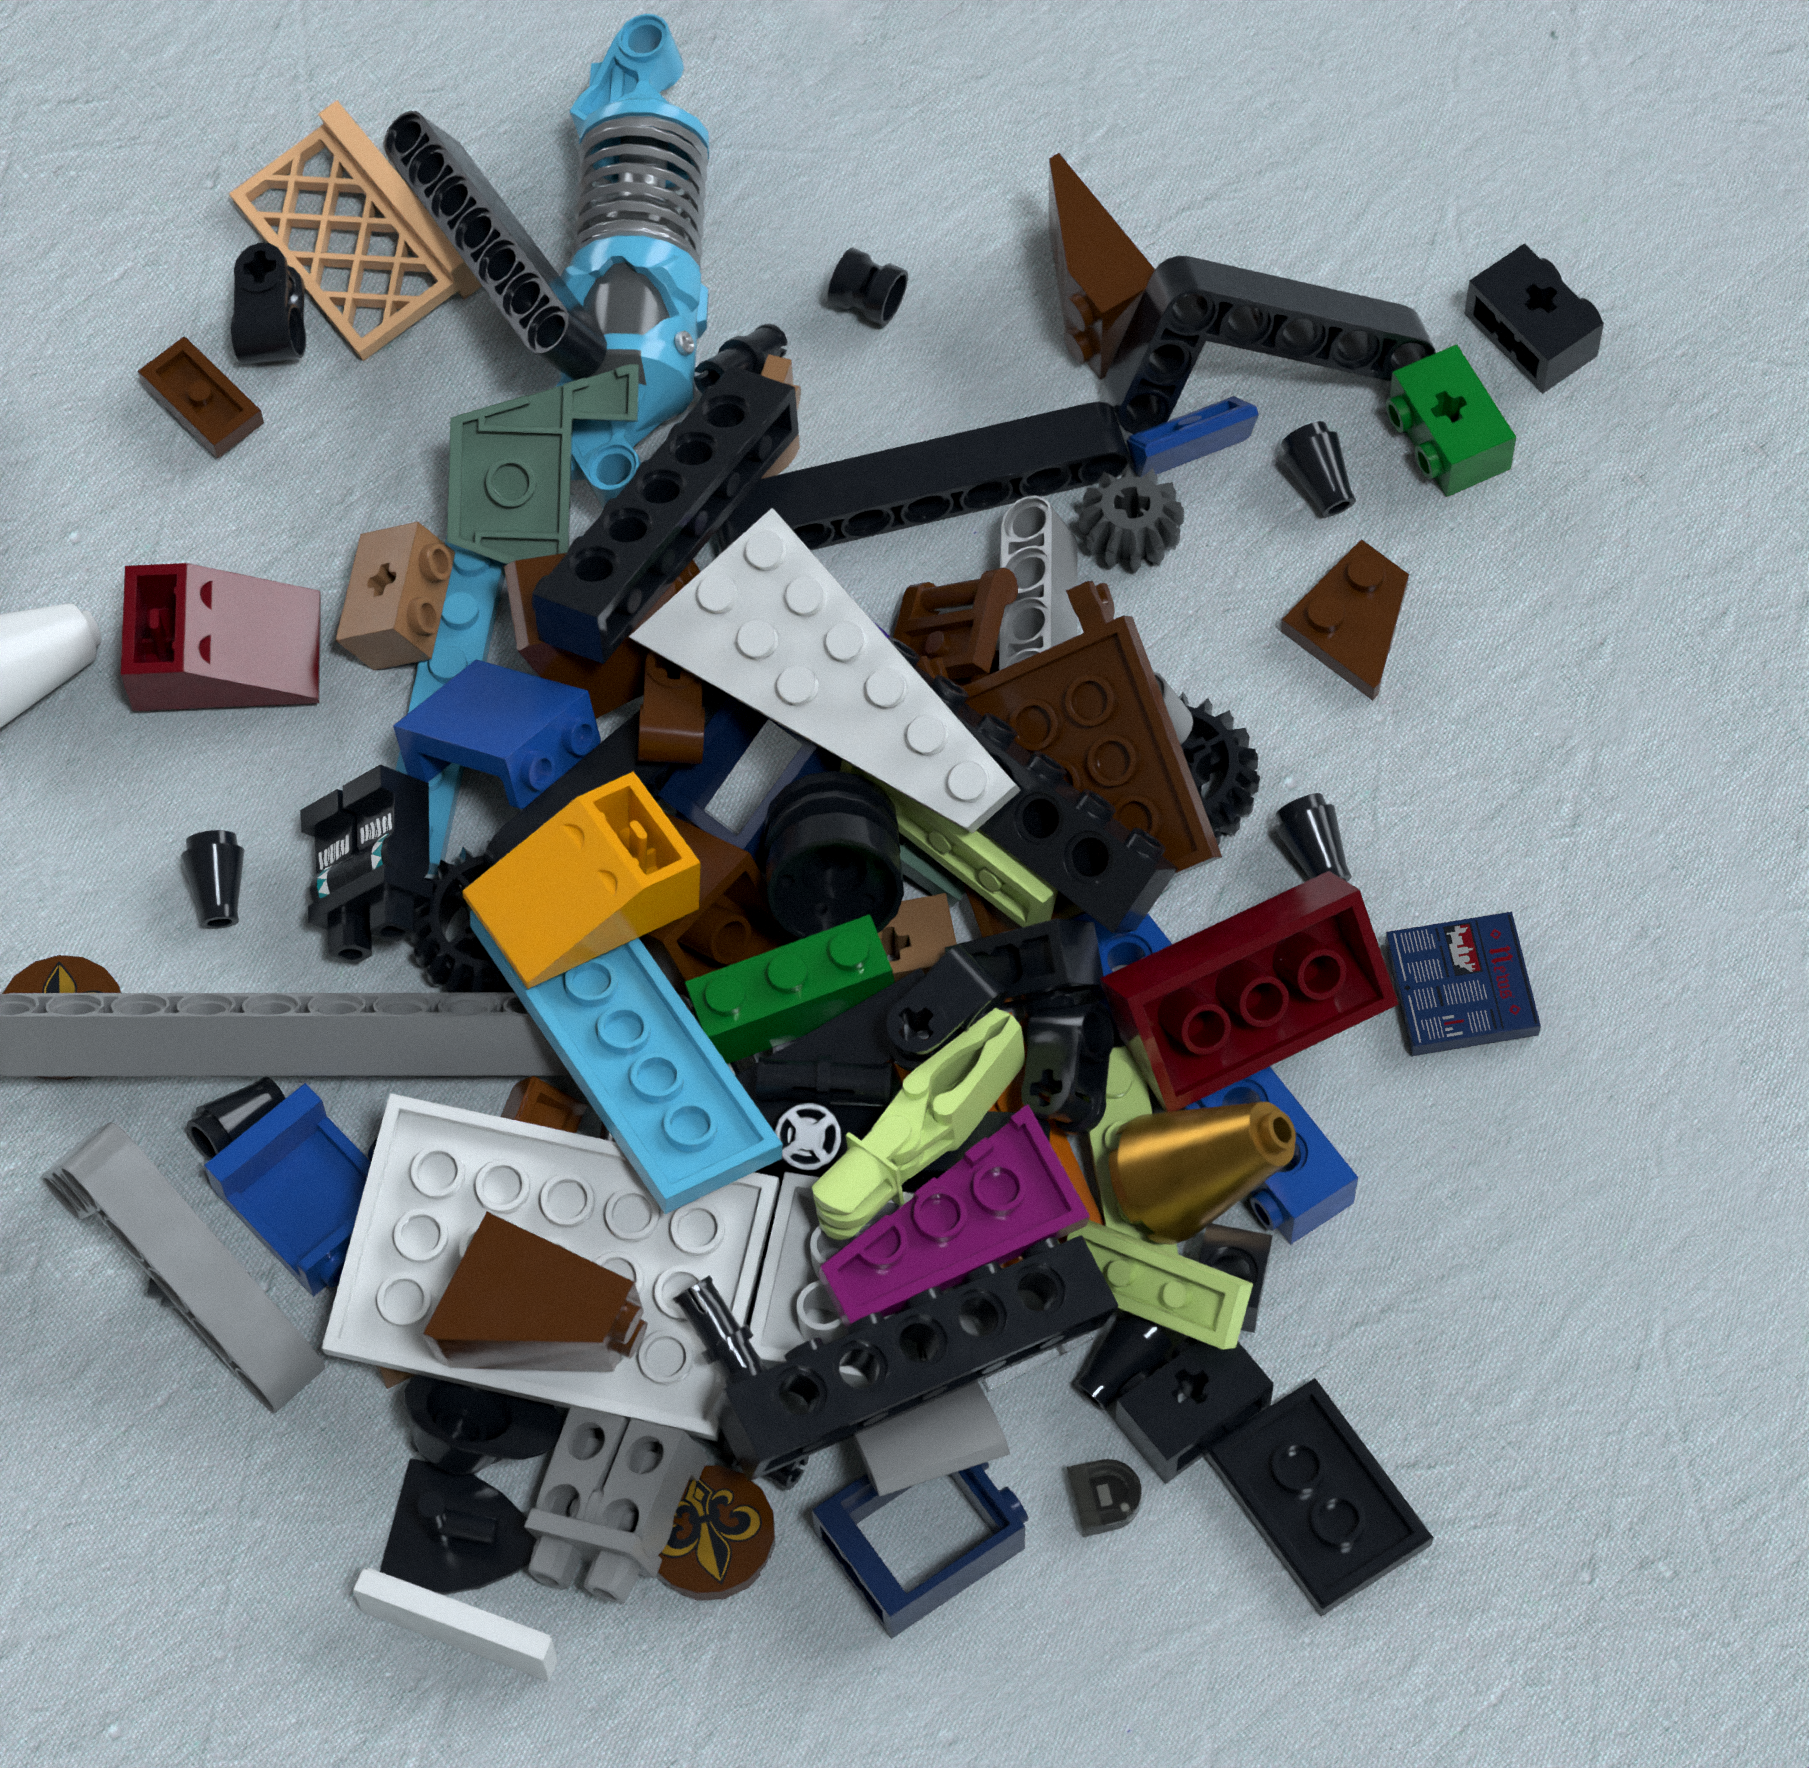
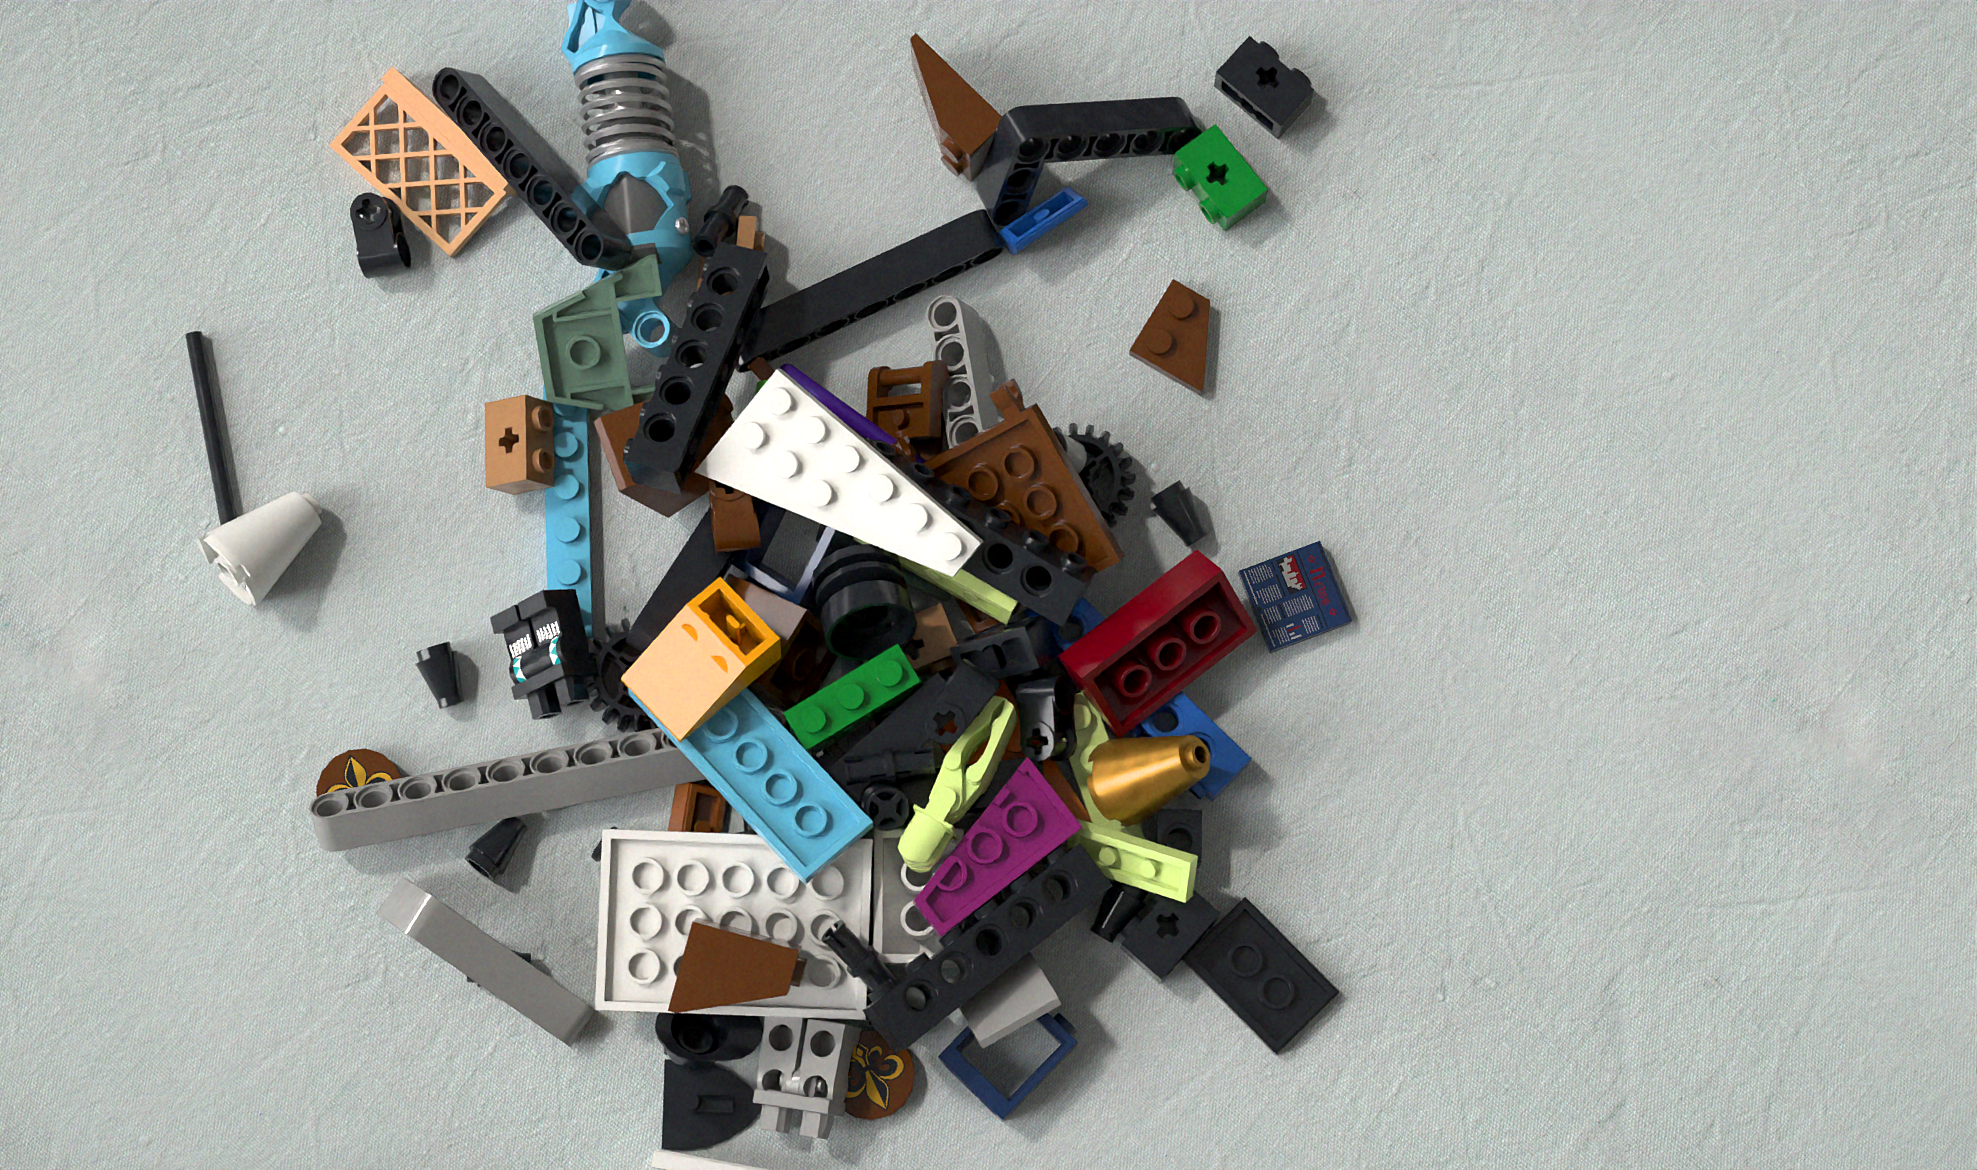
camera: 10 degrees left, 15 degrees up
(201, 397) = (346, 311): reddish brown plate -> none
(217, 639) = (404, 498): slope -> none
(295, 1187) = (552, 889): blue panel -> none
(500, 725) = (616, 543): blue panel -> none
(867, 286) = (796, 143): black wheel -> none
(1104, 1495) = (1122, 1001): clear smoke tile -> none
(1131, 518) = (1001, 302): dark grey gear -> none
(1319, 466) = (1135, 229): black cone -> none

